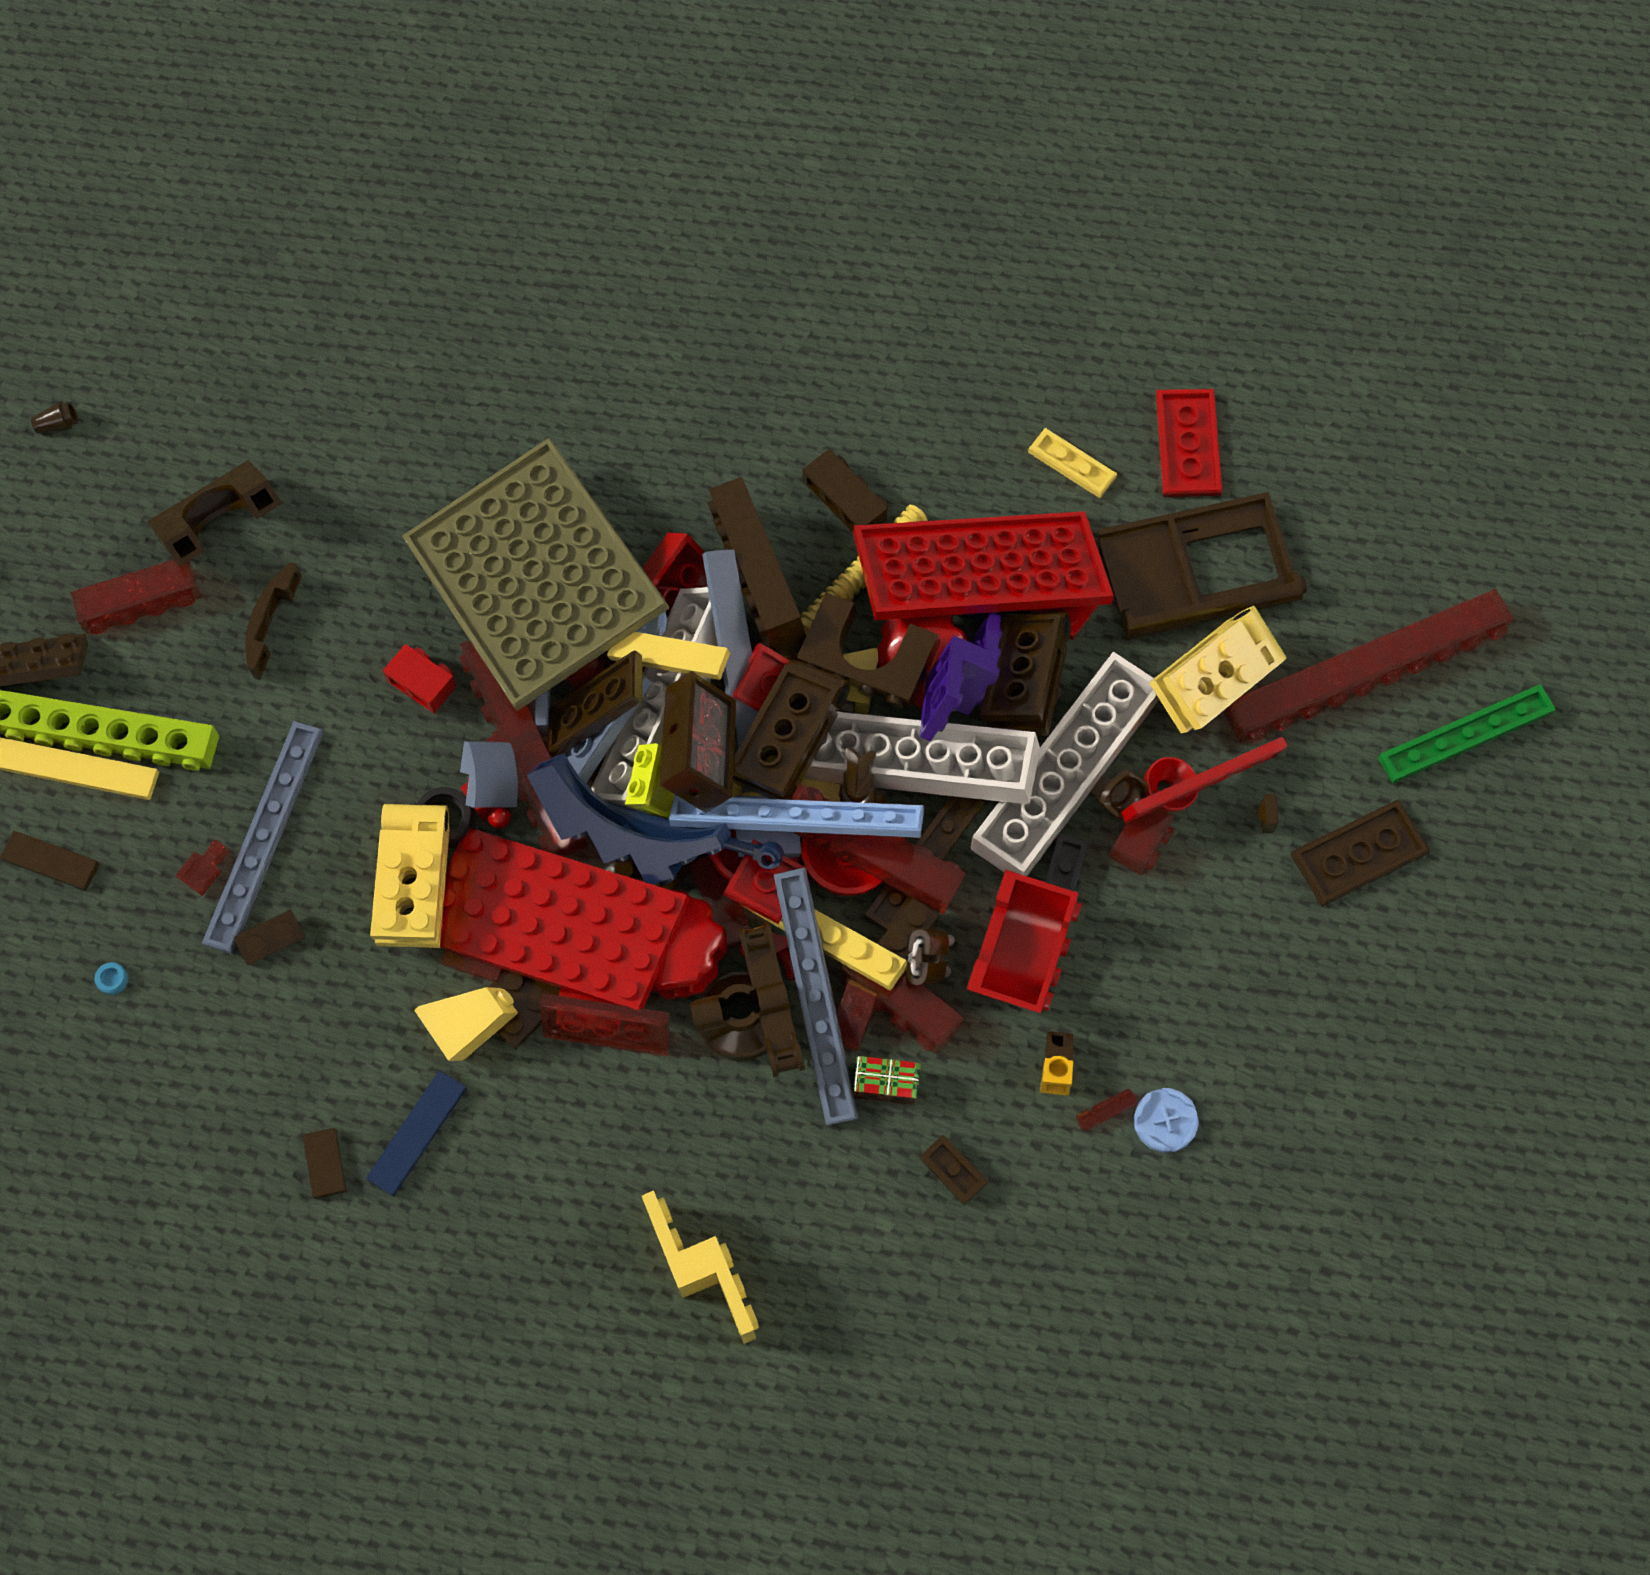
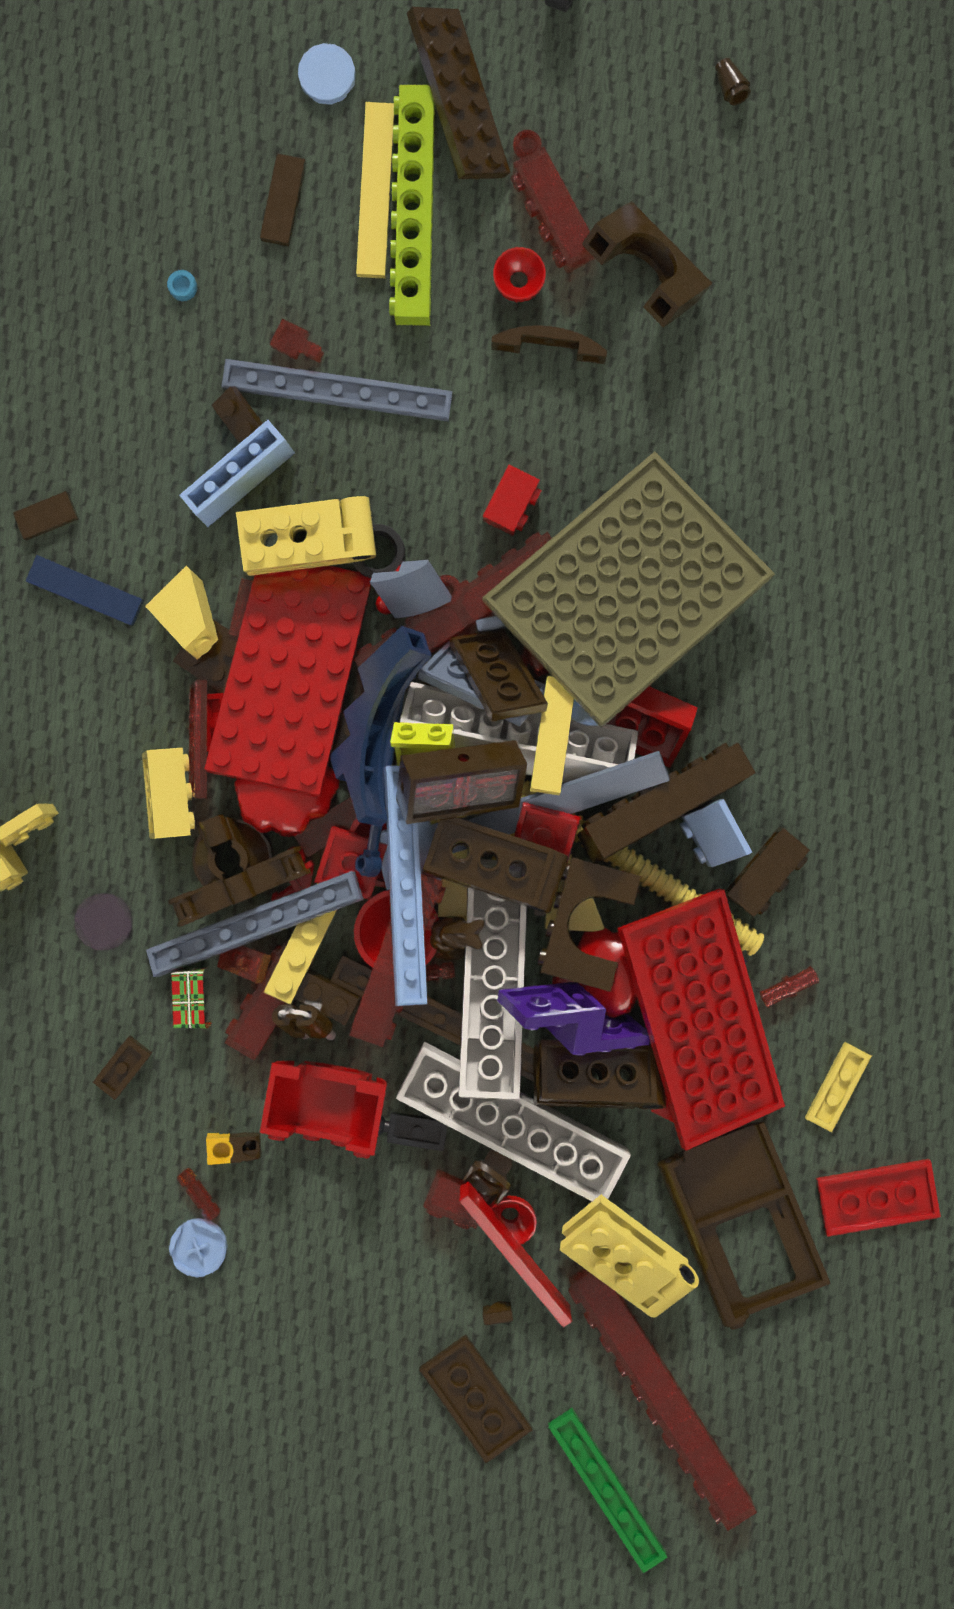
camera: 75 degrees right, 20 degrees up
(61, 614) = (526, 143): none -> clear red plate
(187, 625) = (519, 260): none -> red piece
(328, 943) = (237, 473): none -> light blue brick
(656, 1069) = (167, 793): none -> light yellow slope
(787, 1168) = (103, 921): none -> tile
(797, 525) = (714, 833): none -> light blue slope
(964, 490) = (789, 987): none -> clear red pin

